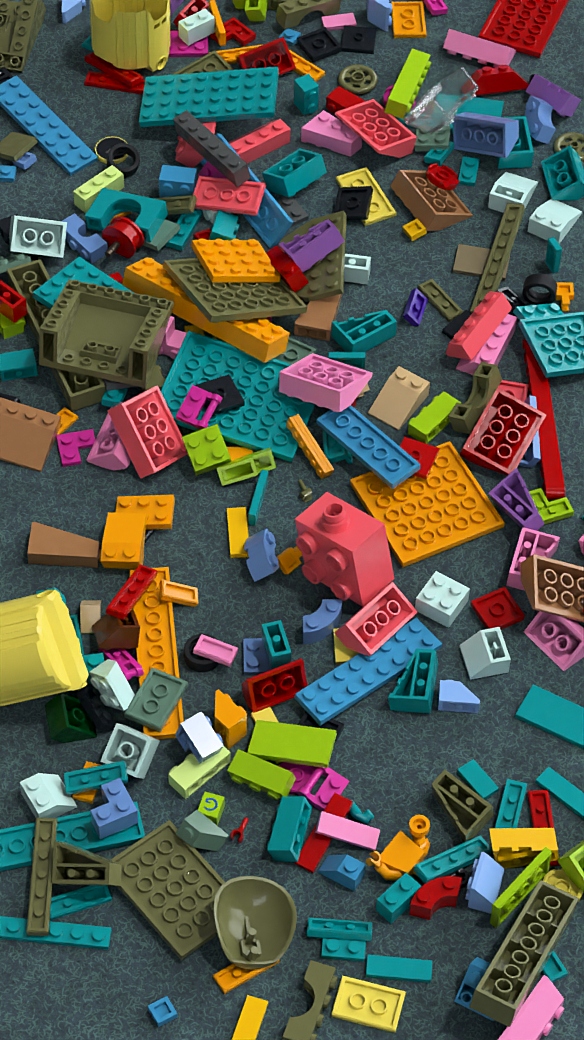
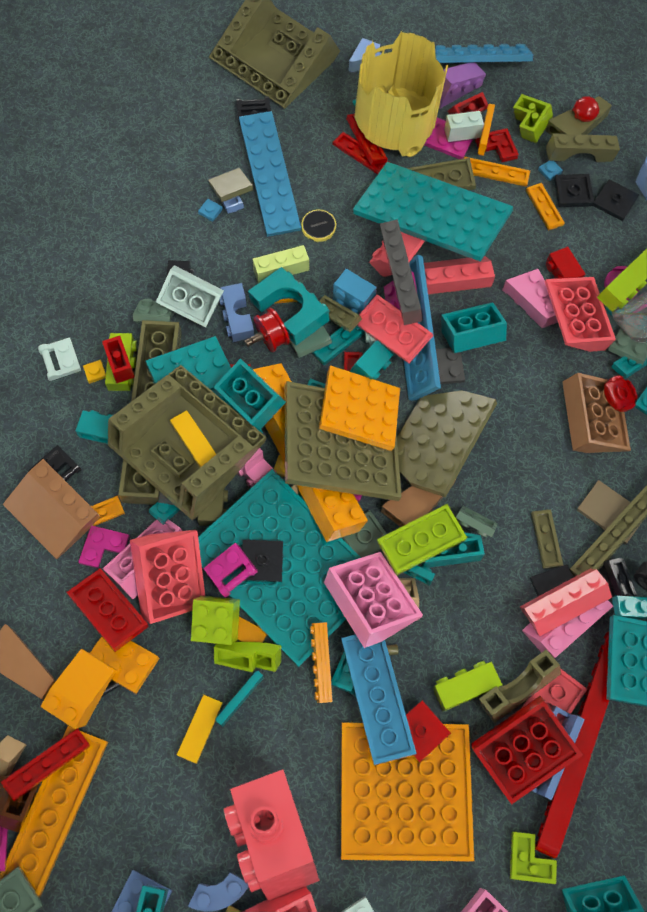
camera: 25 degrees right, 15 degrees up
(111, 327) = (193, 438): none -> yellow tile
(111, 481) = (107, 610): none -> red plate
(129, 150) = (320, 229): black tyre -> none
(141, 275) = (249, 394): none -> teal brick
(178, 593) = (98, 780): light orange tile -> none
(195, 664) = (66, 862): black tyre -> none
(215, 650) = (90, 880): bright pink tile -> none
(261, 554) = (199, 783): medium blue brick -> none
(268, 55) = (513, 187): red slope -> none
(287, 268) = (405, 438): red slope -> none
(289, 559) = (224, 793): light orange plate -> none
(305, 492) = (291, 716): olive hand -> none
(306, 94) = (531, 243): teal brick -> none
(314, 245) = (440, 430): medium lavender wedge -> none
(337, 22) = (605, 172): bright pink tile -> none
(341, 329) = (421, 539): none -> lime tile
(354, 201) = (514, 387): black plate -> none
(357, 79) = (595, 240): olive plate -> none
(357, 268) = (478, 466): light aqua brick -> none
(371, 304) = (471, 518): none -> sand green plate
(380, 205) = (533, 381): light yellow tile -> none
(399, 398) = (443, 644): tan slope -> none
(414, 229) = (561, 443): yellow plate -> none
(415, 307) = (515, 538): dark purple plate -> none
(516, 501) = (498, 850): medium lavender wedge -> none

